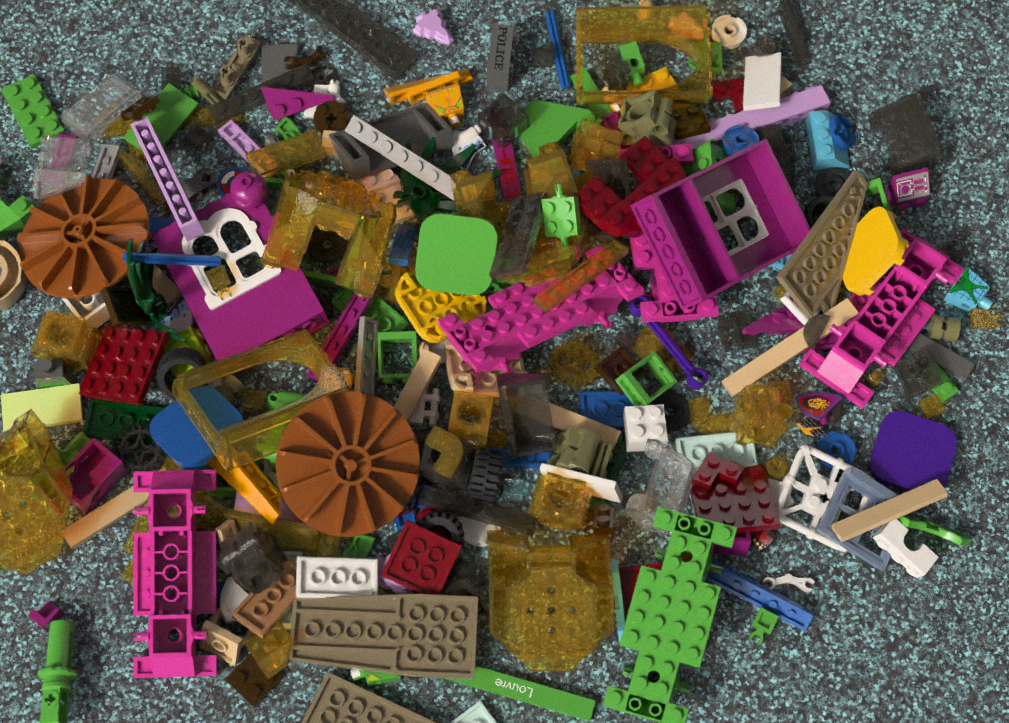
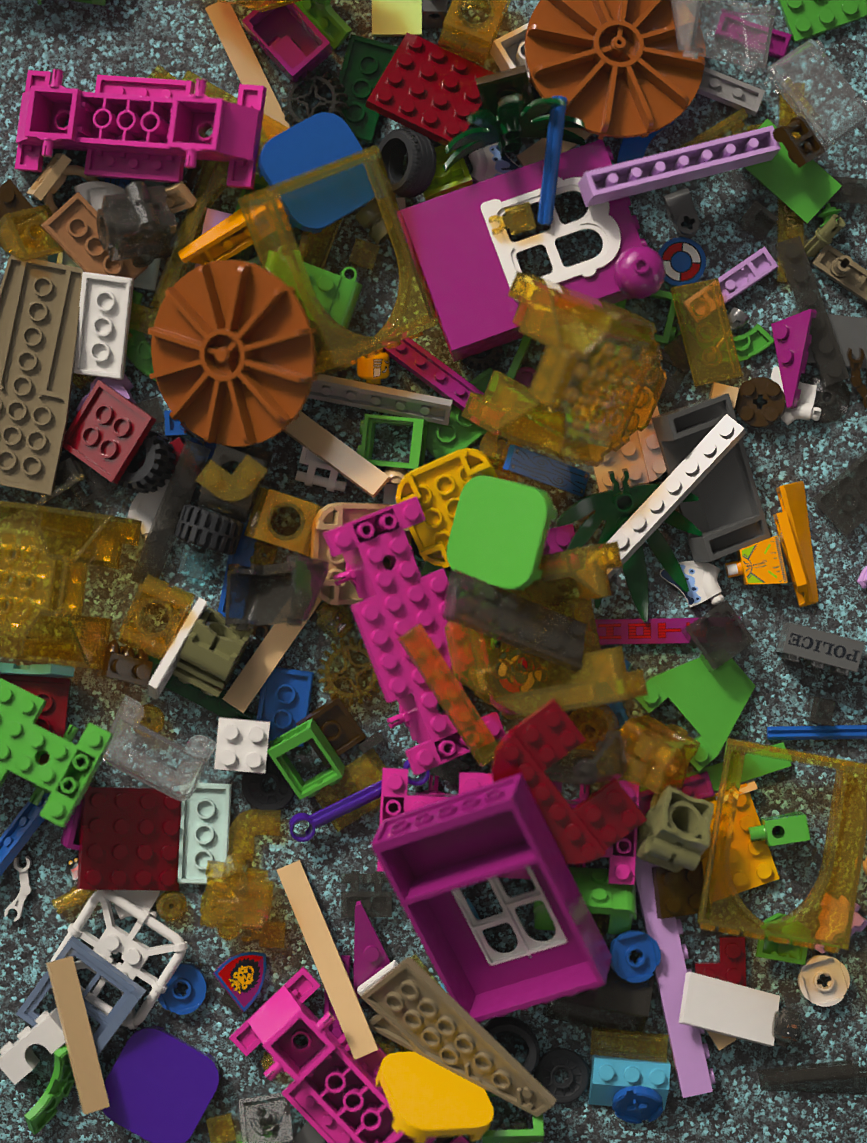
camera: 105 degrees right, 20 degrees up
(561, 216) = (534, 682): bright green plate -> none
(615, 72) = (769, 806): clear smoke plate -> none
(714, 467) = (177, 824): dark red plate -> none
(786, 541) = (71, 899): none -> clear yellow pin
(802, 143) = (629, 1044): none -> clear yellow plate
(809, 427) = (214, 961): sticker -> none
(814, 329) = (341, 995): clear smoke tile -> none

